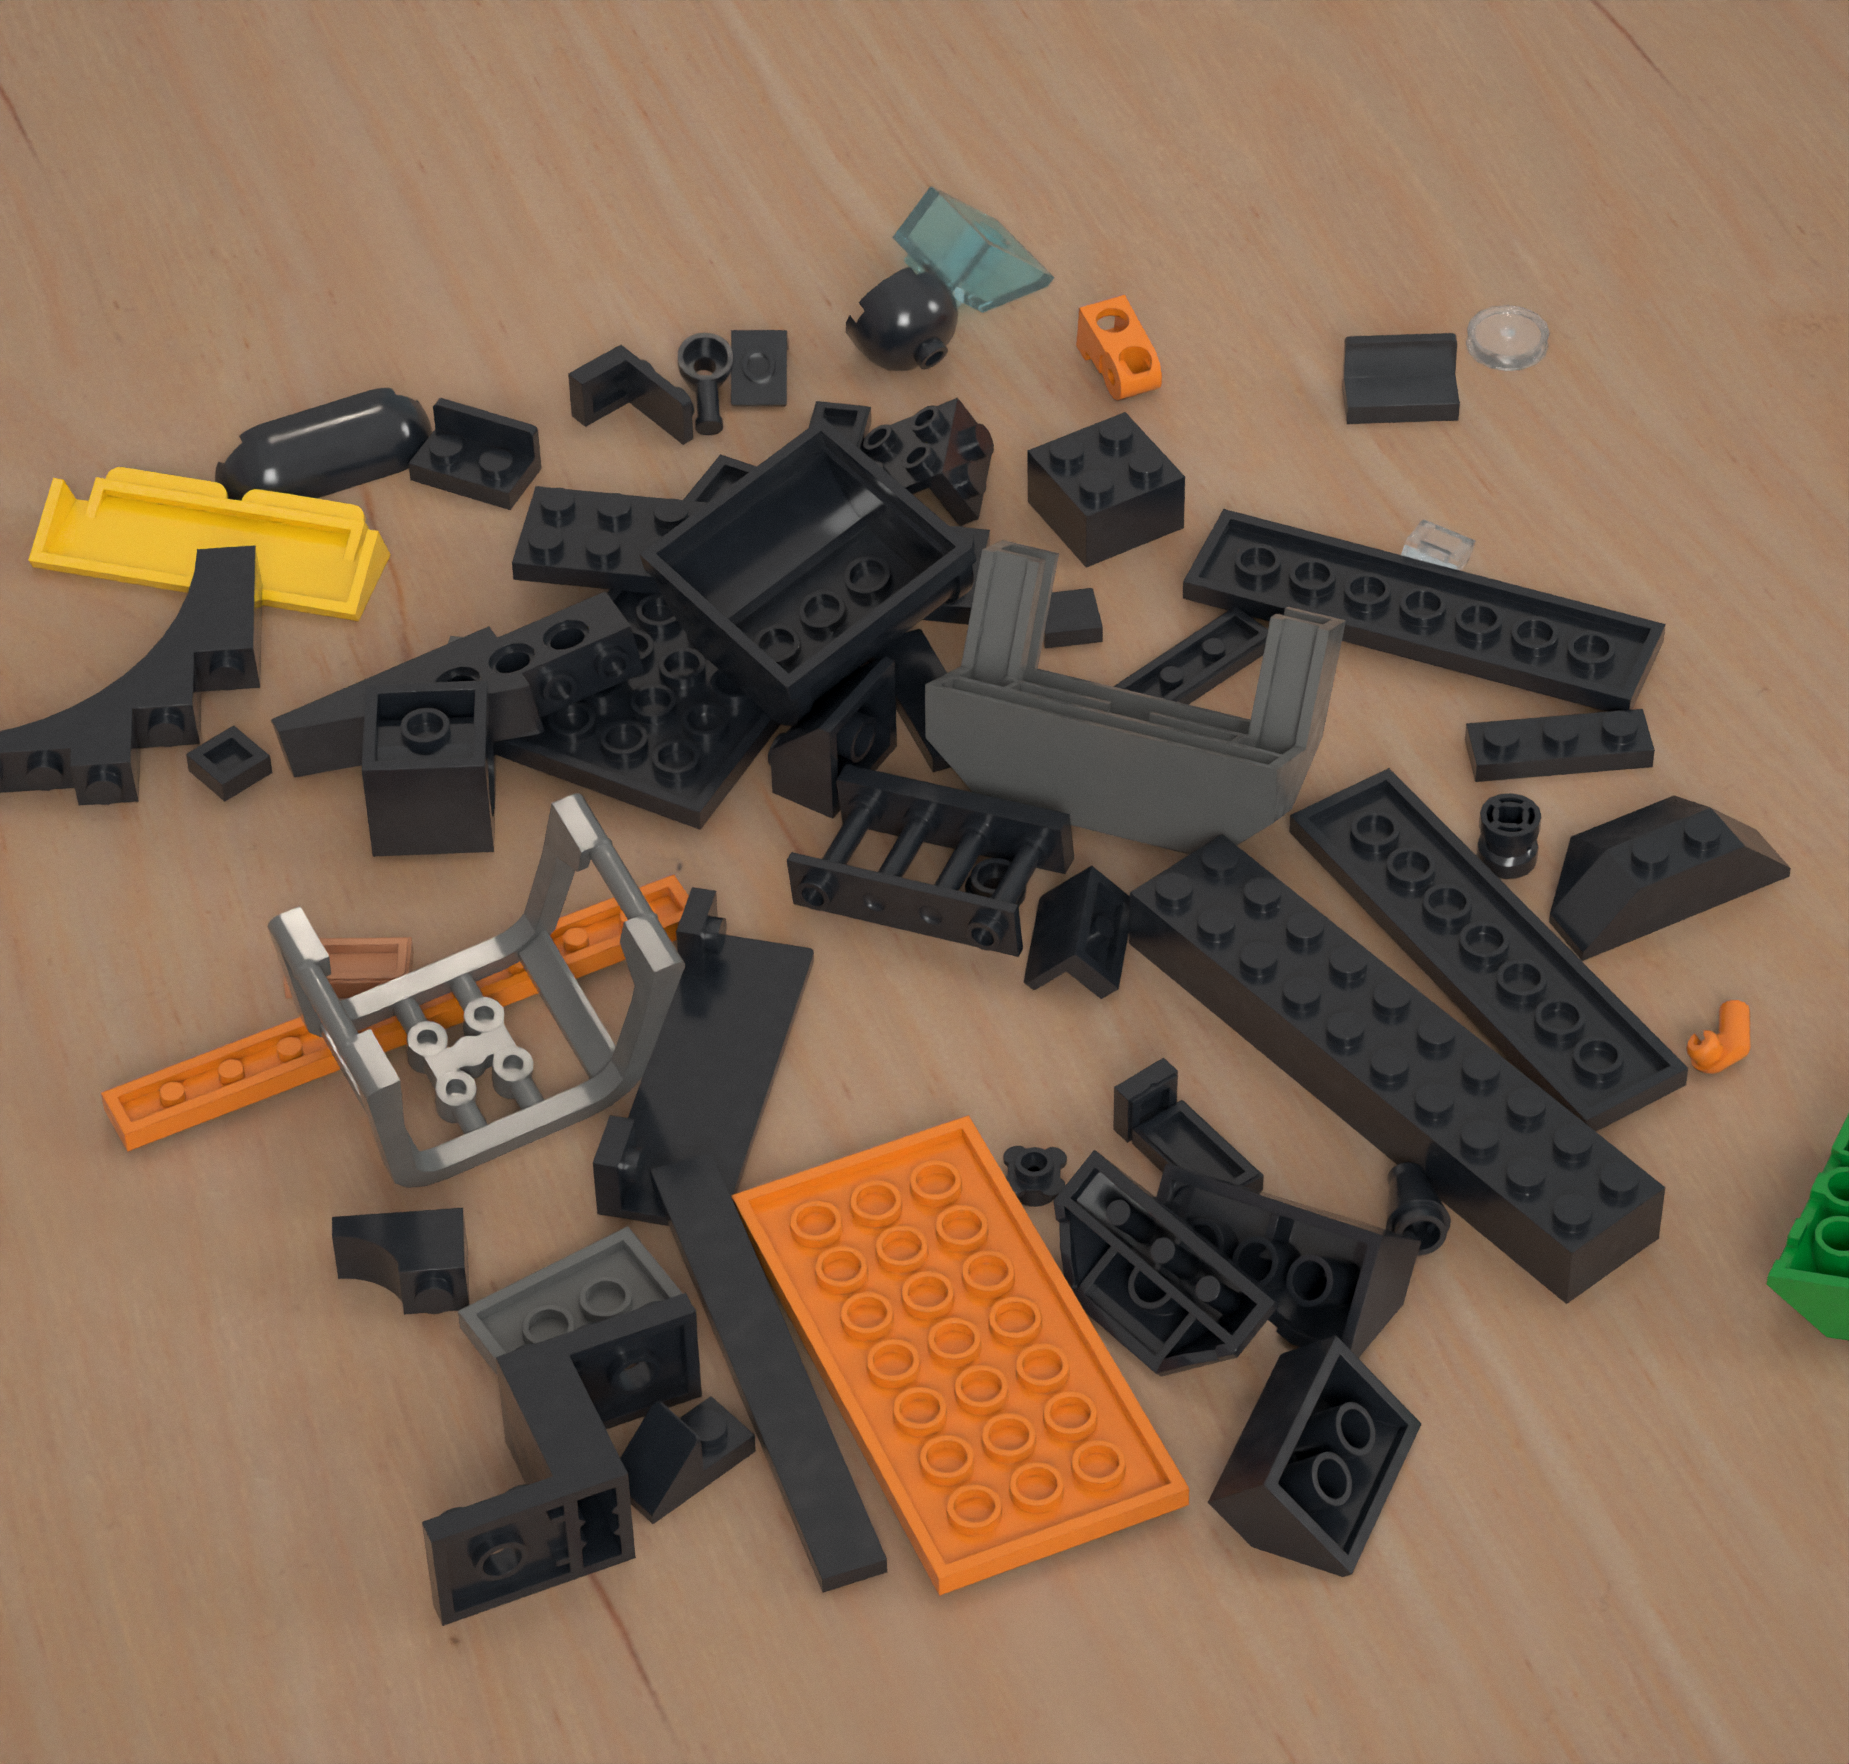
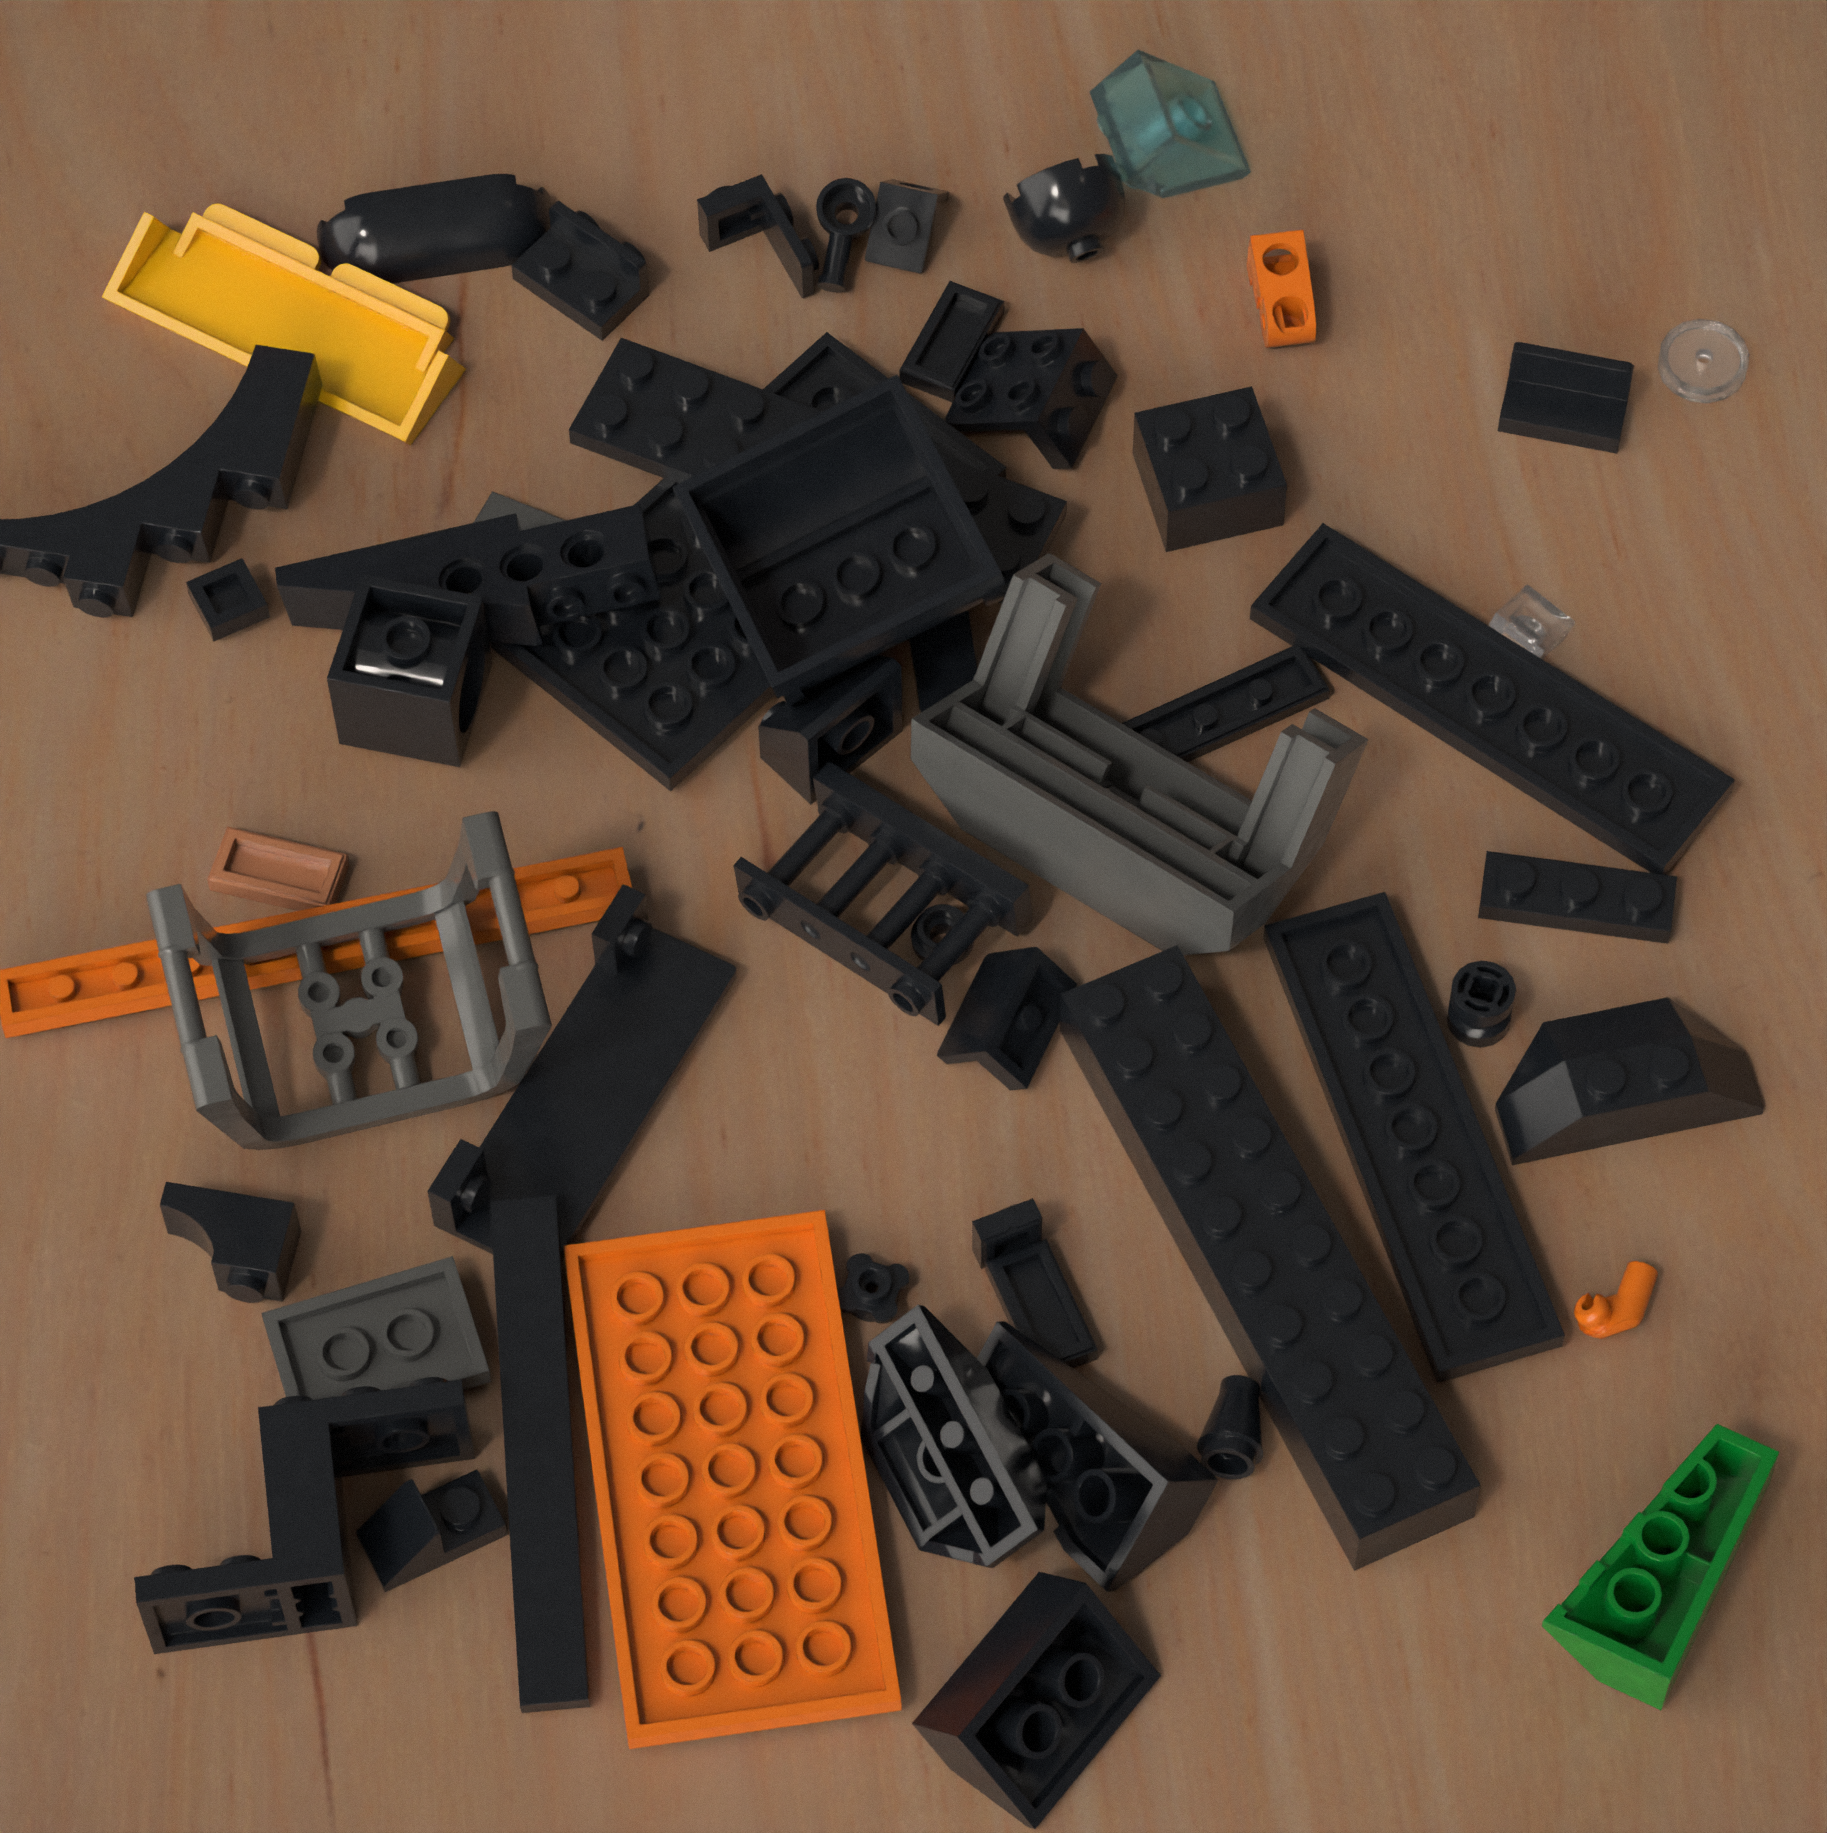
camera: 15 degrees right, 15 degrees up
(1073, 619) = (1124, 616): black tile -> none

